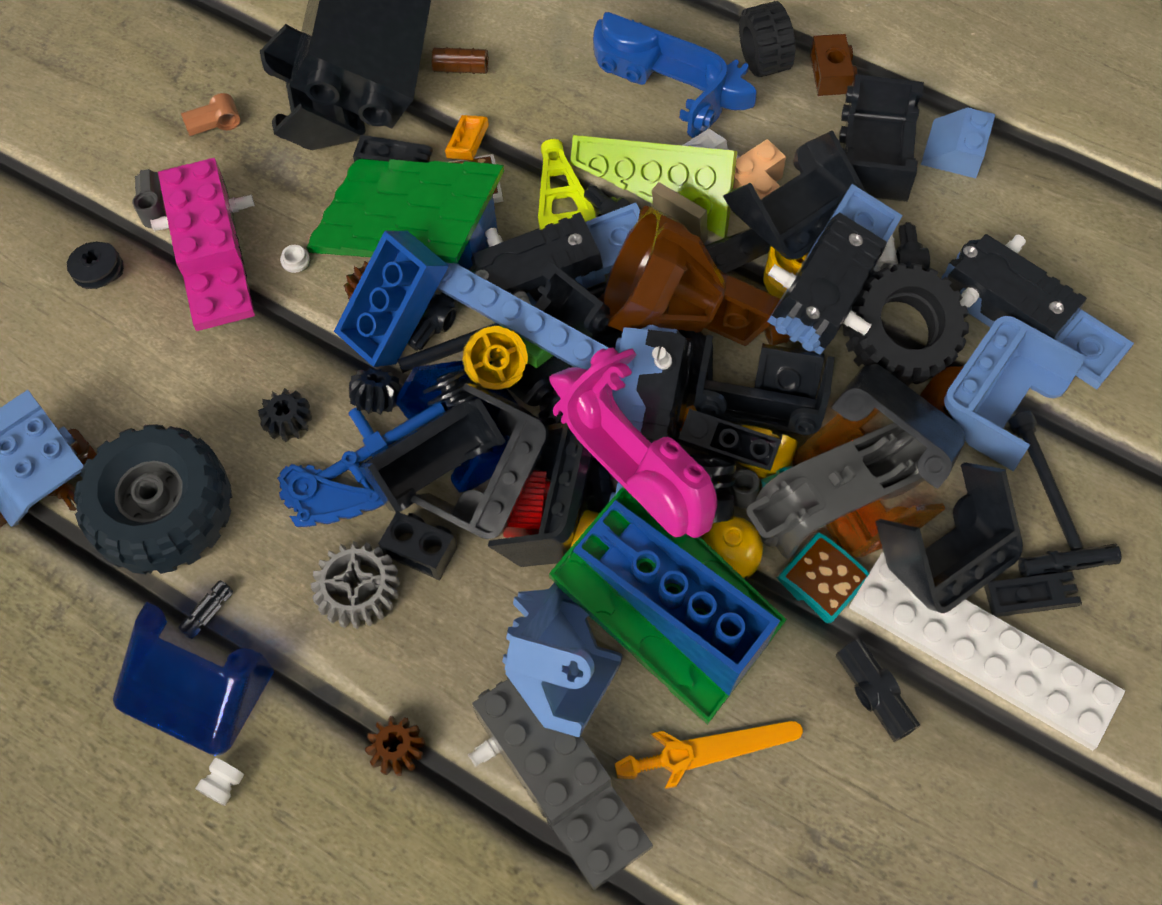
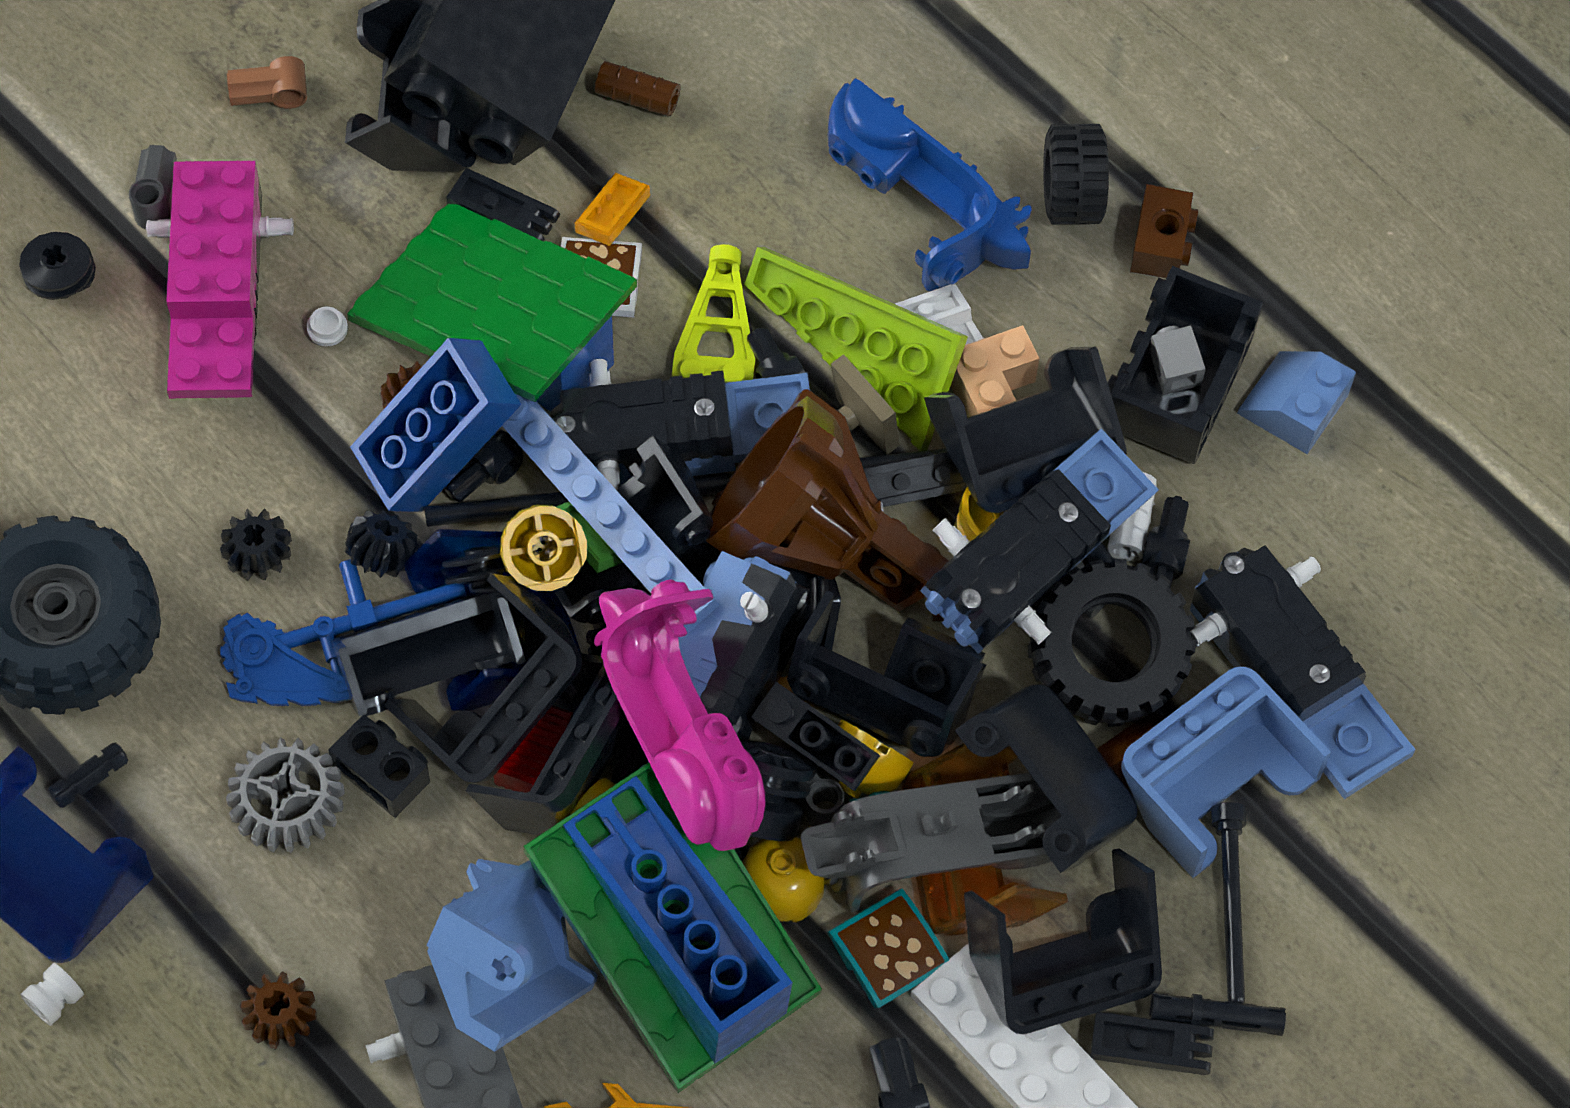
camera: 10 degrees right, 0 degrees up
(873, 137) = (1176, 359): none -> light grey brick

